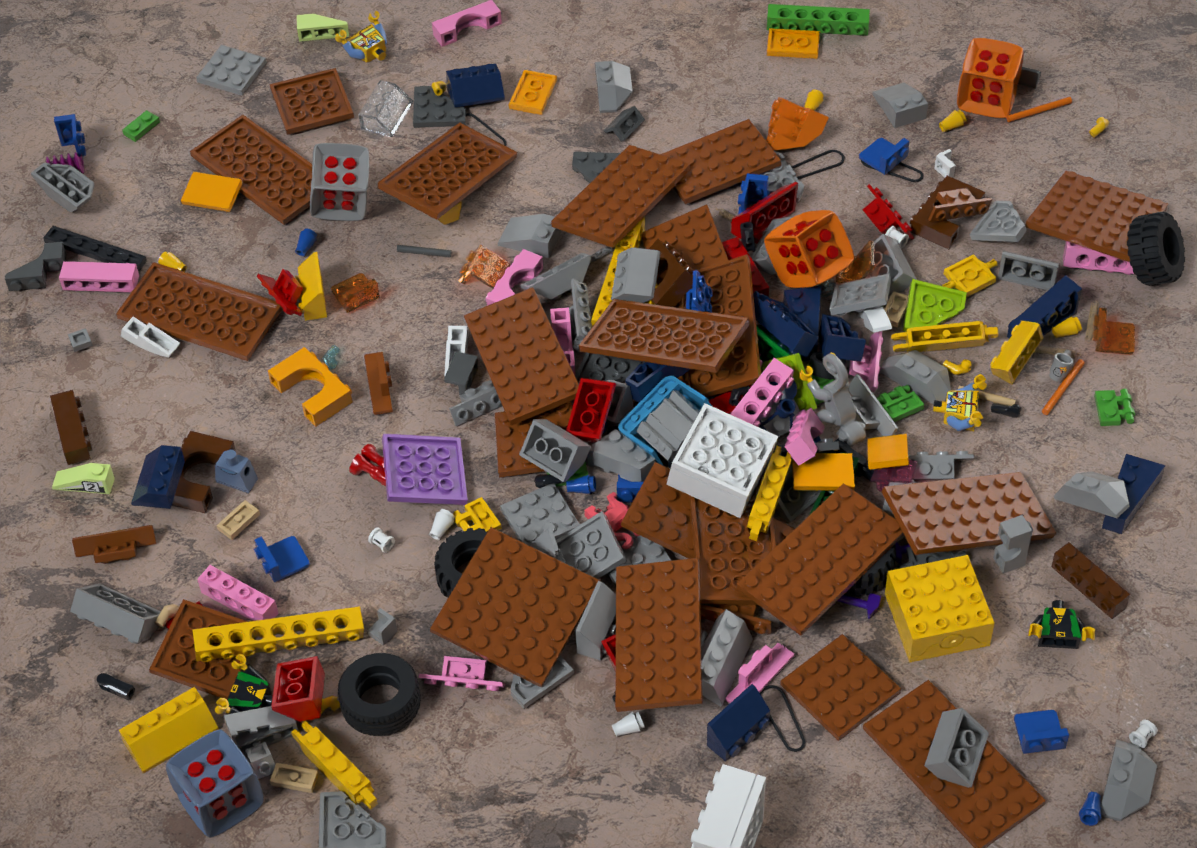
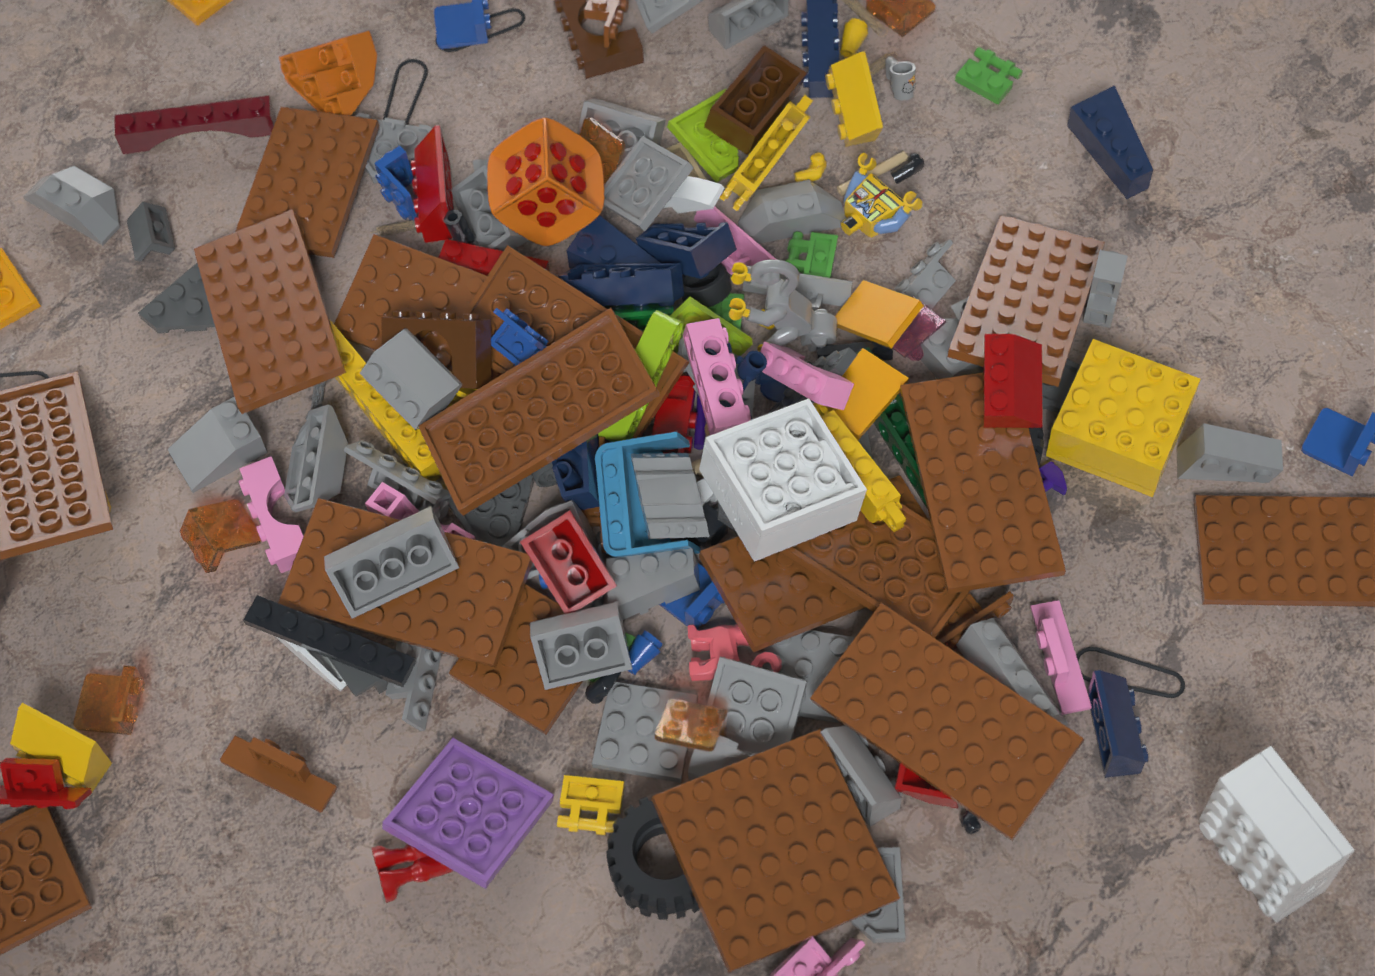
camera: 50 degrees left, 10 degrees up
(305, 366) = (172, 841): light orange arch -> none
(329, 357) = (184, 806): clear light blue arm -> none
(381, 540) = (525, 936): white bush -> none
(423, 250) = (121, 579): dark grey piece -> none
(441, 523) = (561, 848): white cone -> none
(462, 348) = (330, 641): none -> black plate
(521, 336) = (390, 562): none -> light grey slope
(551, 523) = (691, 725): none -> clear orange bracket
(629, 724) = (1019, 848): white cone -> none
(725, 107) = (146, 129): none -> dark red arch
(736, 393) = (674, 403): black arm -> none
(737, 363) = (654, 351): none -> lime beam
(814, 99) = (315, 29): yellow cone -> none
(840, 687) = (1135, 587): dark orange plate -> none
(882, 216) = (544, 85): red bracket -> none
(888, 525) = (1012, 382): none -> red slope
(901, 238) = (585, 93): white bush -> none
(956, 748) = (1314, 532): light grey slope -> none
(969, 679) = (1229, 456): none -> light grey wedge
(970, 275) = (702, 69): yellow plate -> none
(970, 304) = (755, 99): none -> reddish brown brick
(1060, 628) = (1231, 325): torso -> none
(1063, 386) = (927, 107): orange bar -> none
(1090, 580) = (1193, 256): reddish brown brick -> none
(1095, 493) = (1098, 170): light grey wedge -> none

